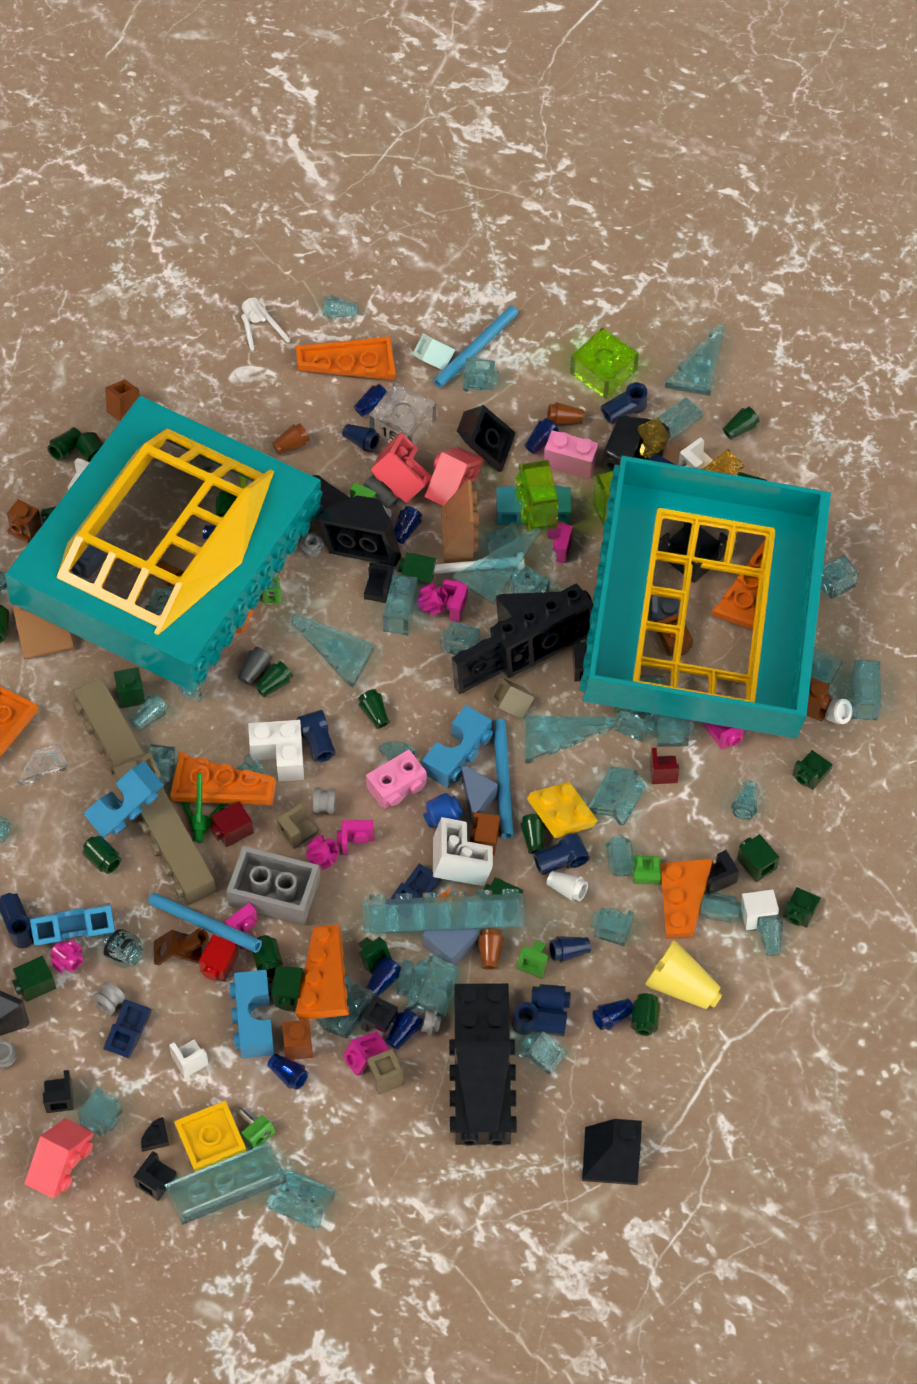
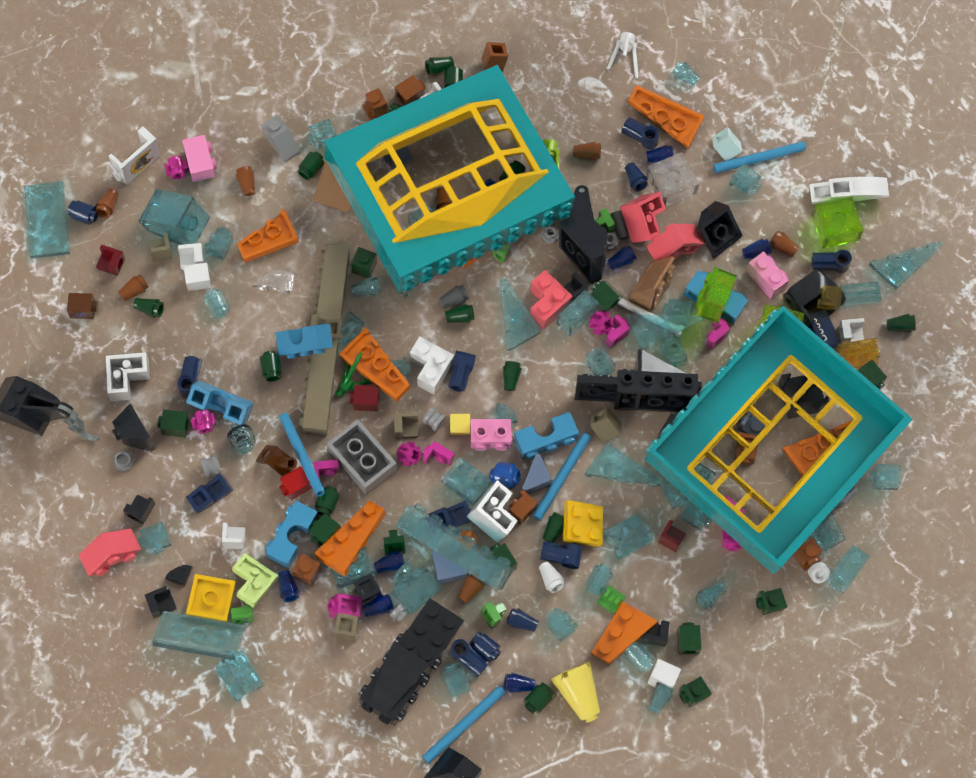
camera: 30 degrees right, 10 degrees up
(52, 486) = (409, 90): none -> dark orange brick
(246, 1080) = (258, 579): none -> yellowish green plate
(336, 390) = (640, 133): none -> dark blue piece
(355, 791) = (459, 424): none -> light yellow tile
(360, 604) = (552, 299): none -> coral brick
(405, 842) = (466, 481): none -> clear light blue bracket
(580, 329) = (856, 187): none -> white slope
(585, 1093) = (464, 724): none -> dark azure piece

